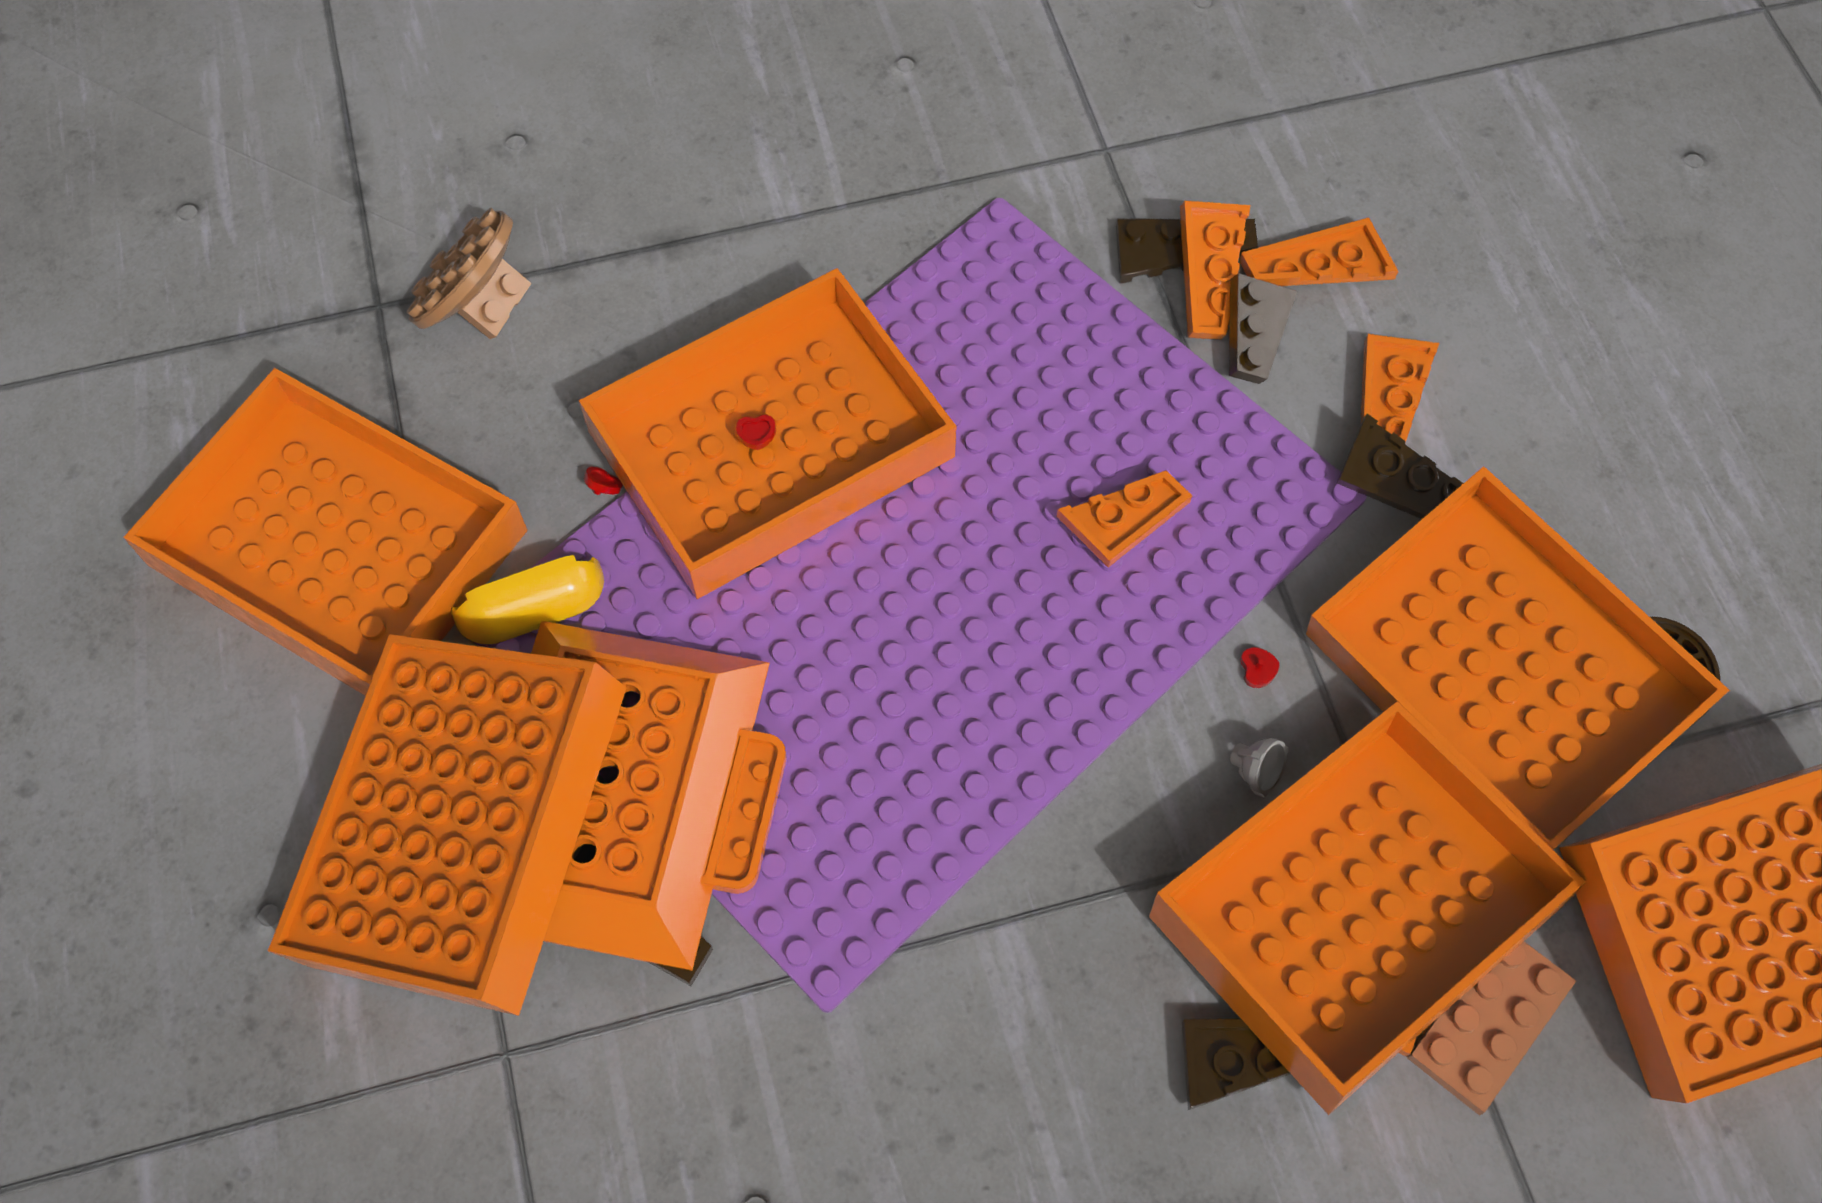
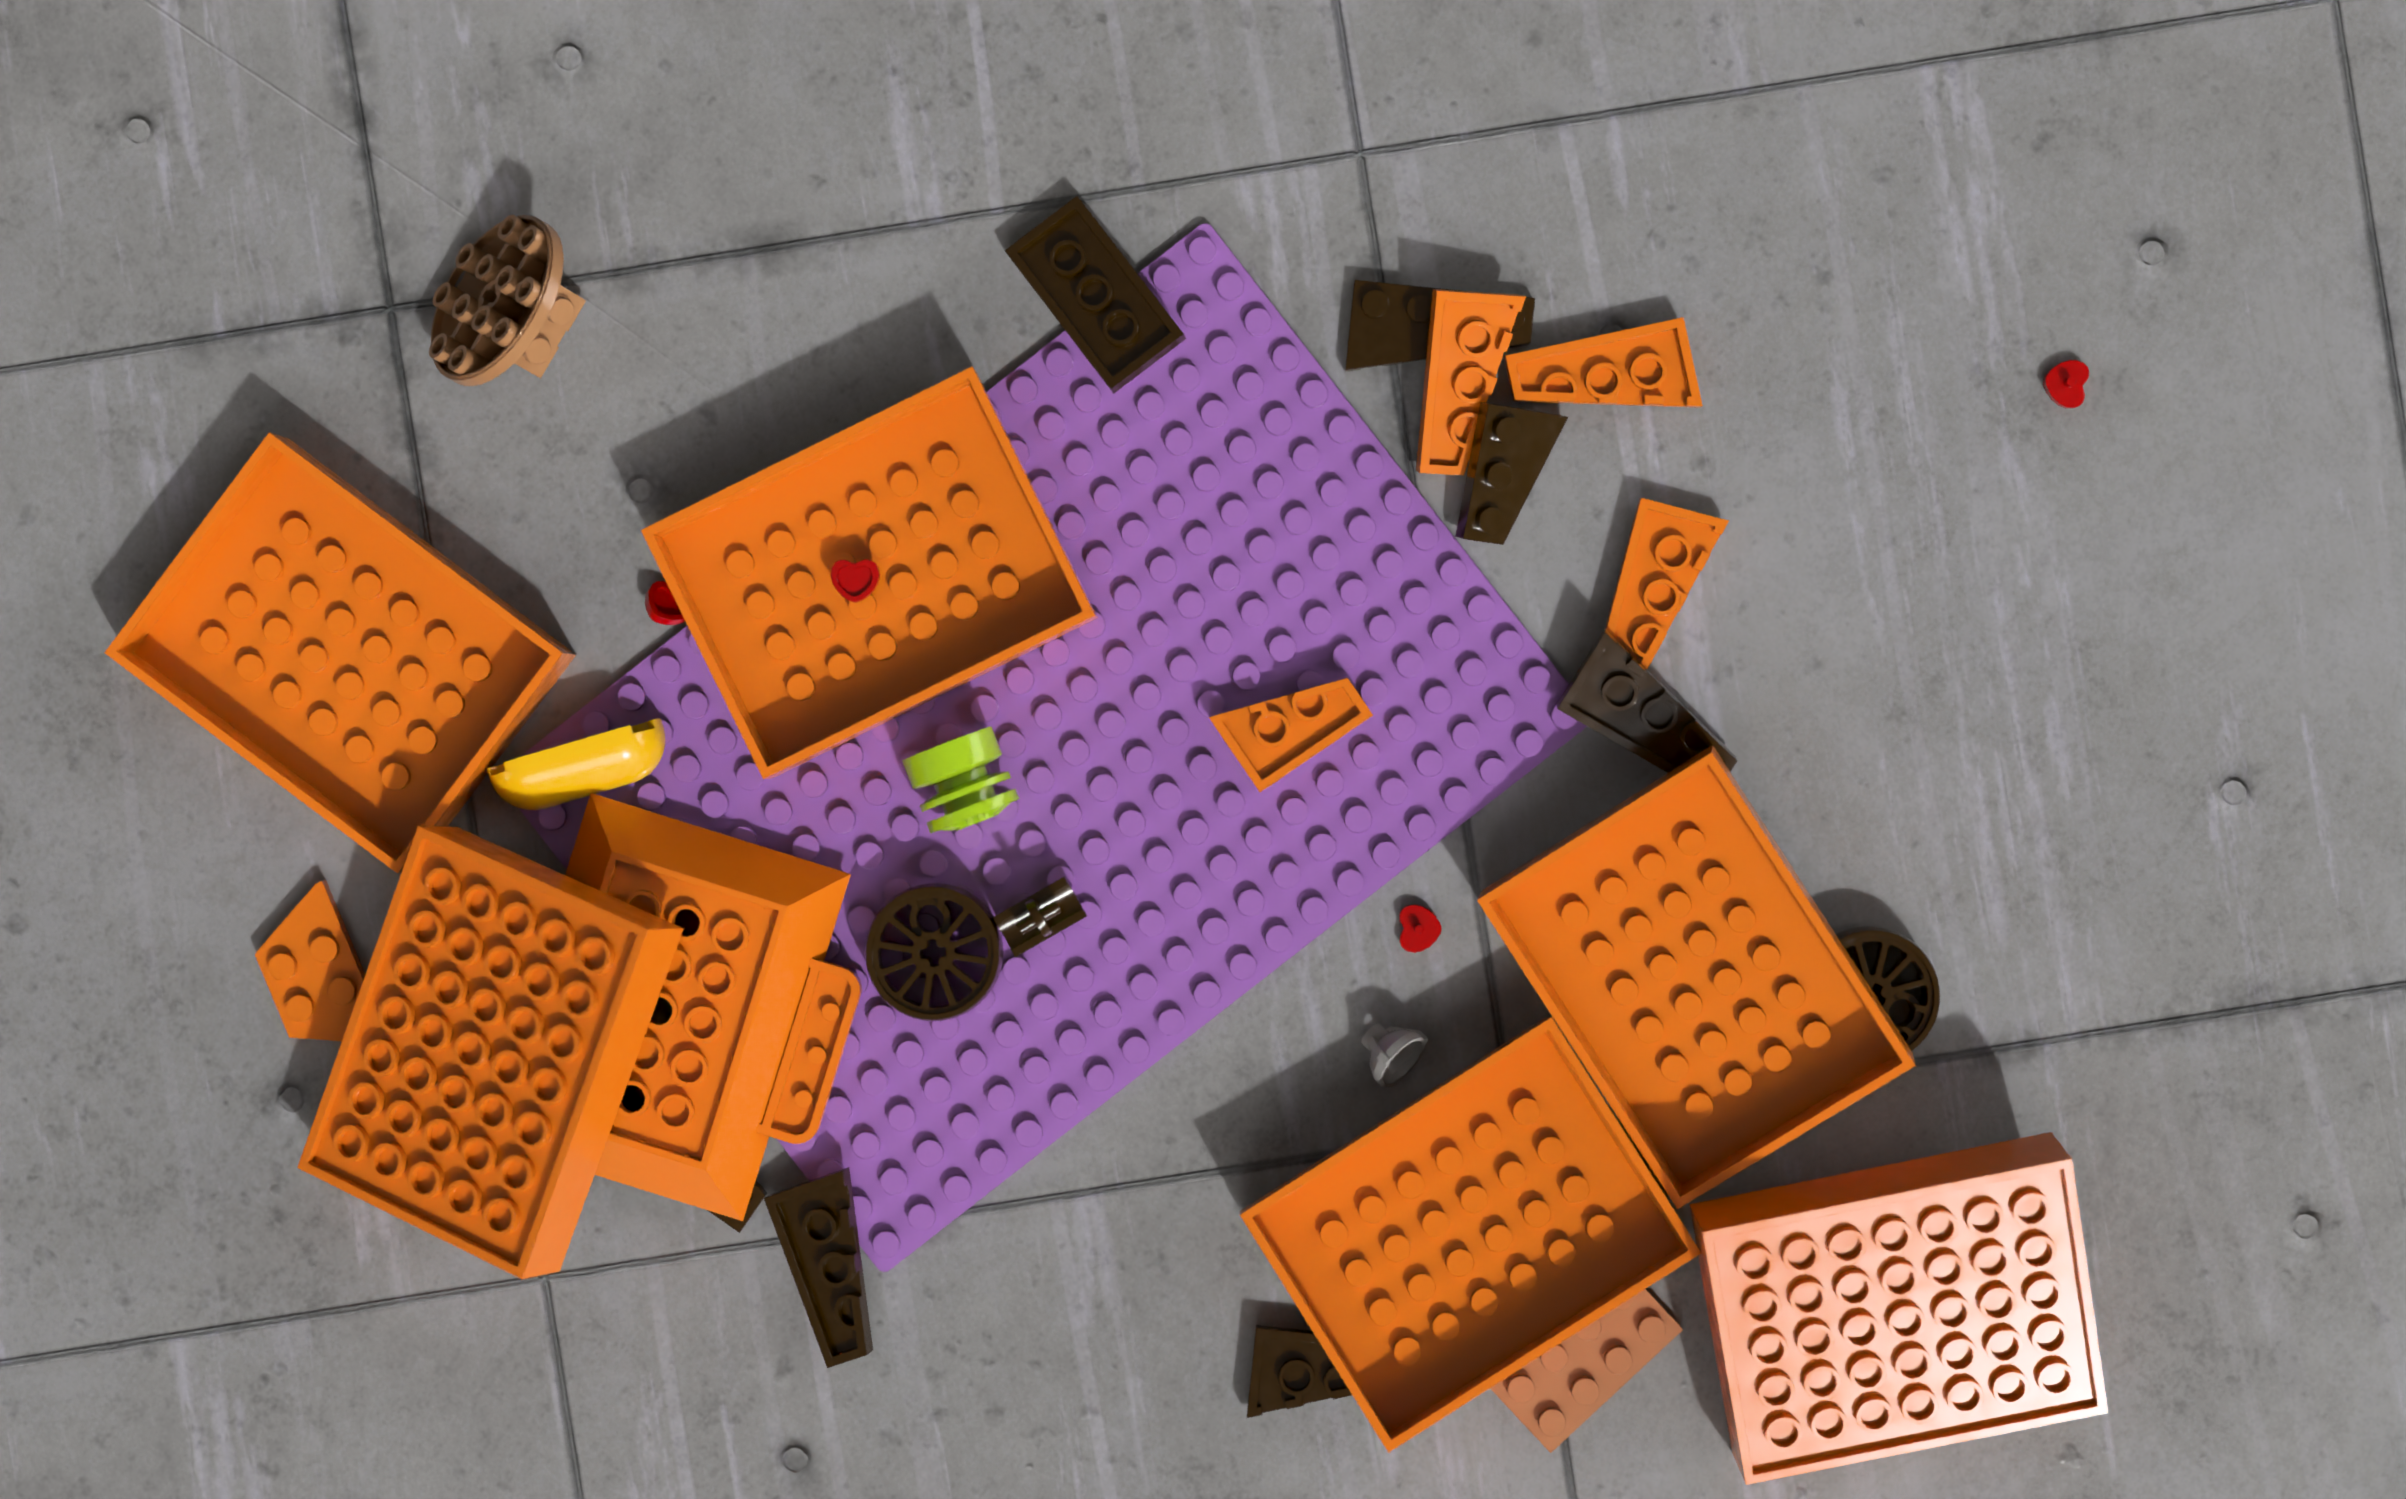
camera: 10 degrees right, 25 degrees up
(289, 793) = (312, 968): none -> orange wing
(770, 997) = (824, 1256): none -> dark brown wing
(848, 669) = (936, 895): none -> dark brown piece
(858, 566) = (961, 780): none -> lime wheel
(925, 239) = (1095, 294): none -> dark brown plate
(937, 673) = (1040, 916): none -> dark brown hips
(1662, 242) = (2066, 382): none -> red piece

